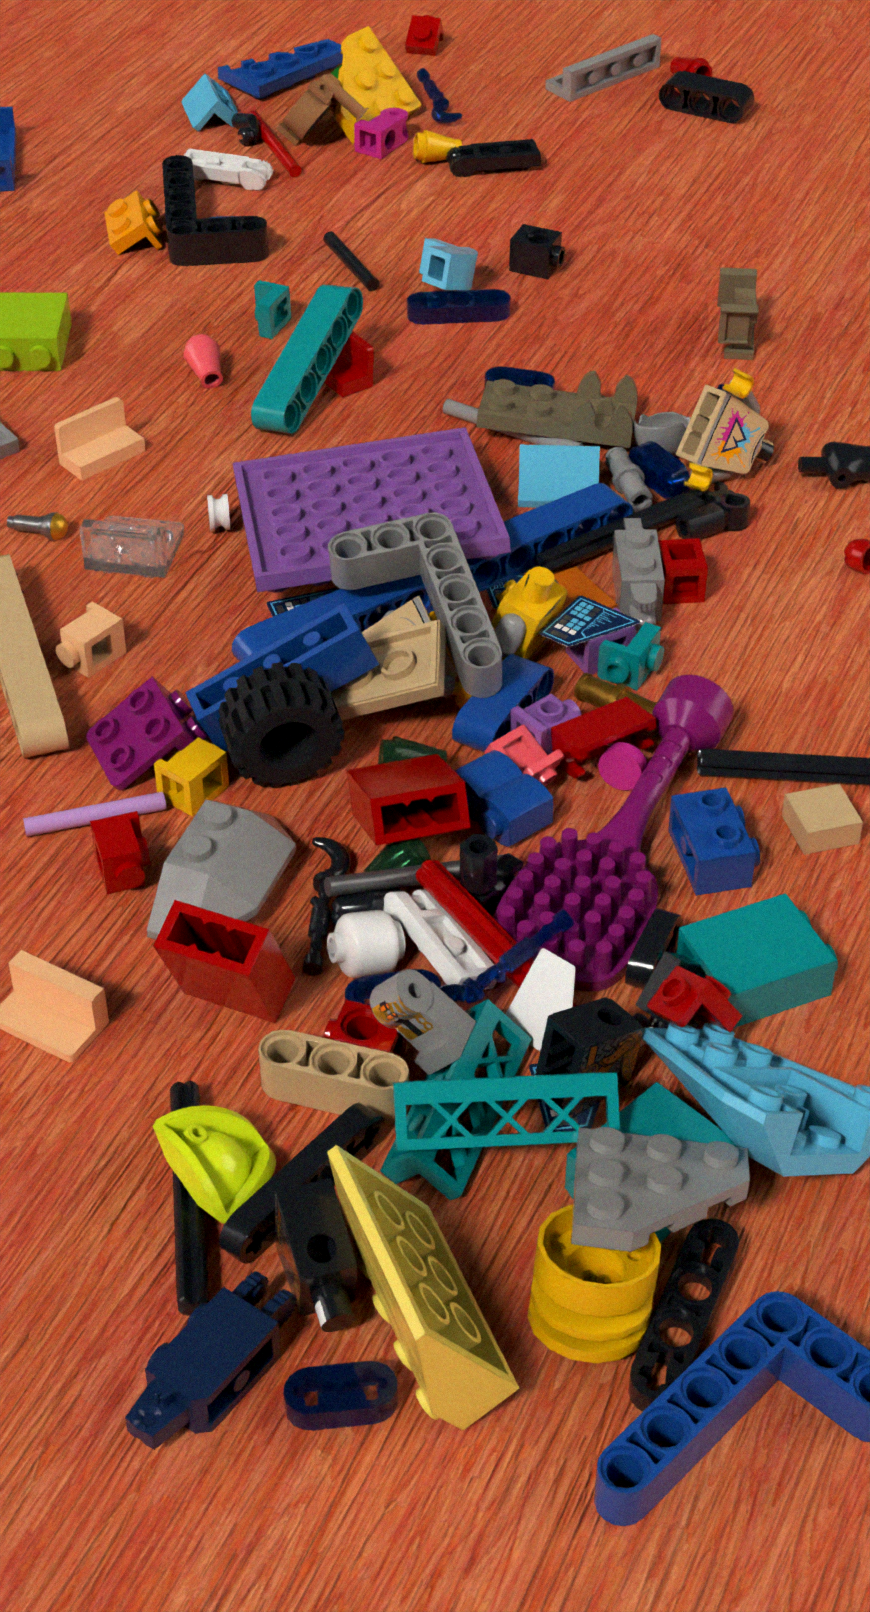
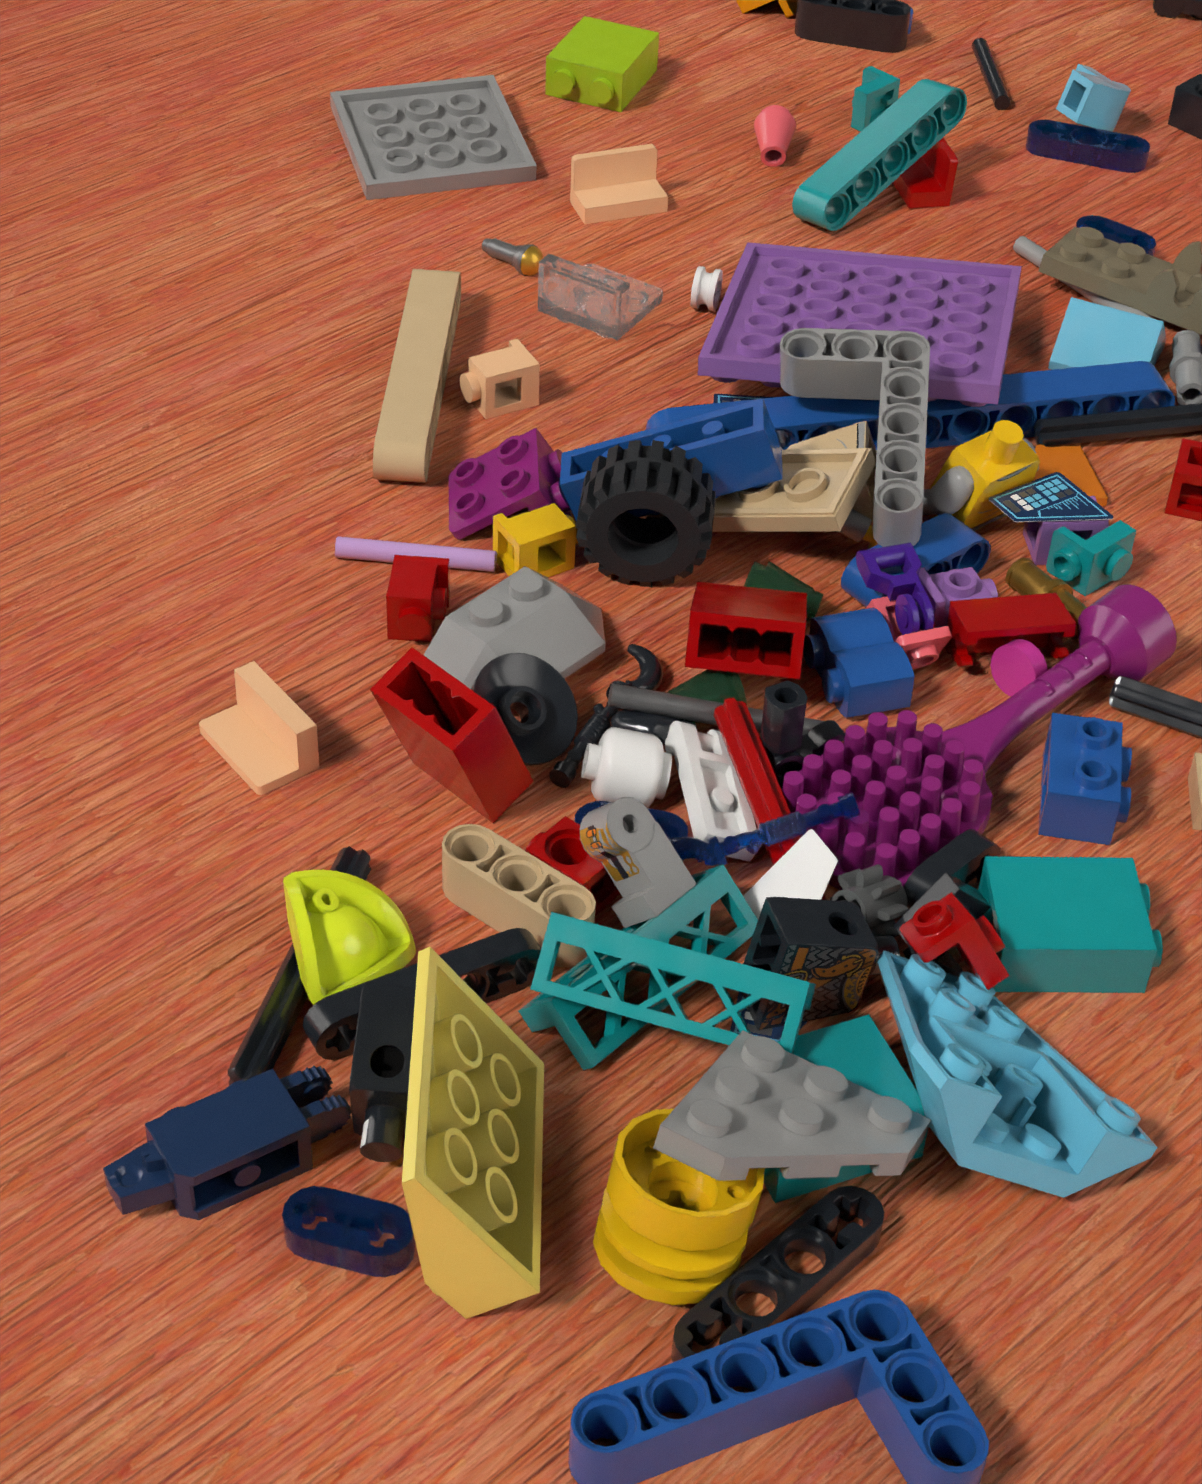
camera: 20 degrees right, 0 degrees up
(268, 905) = (540, 699): none -> black dish
(526, 741) = (912, 604): none -> dark purple piece
(611, 983) = (877, 895): none -> dark grey gear
(638, 572) = (1143, 468): light grey hinge -> none

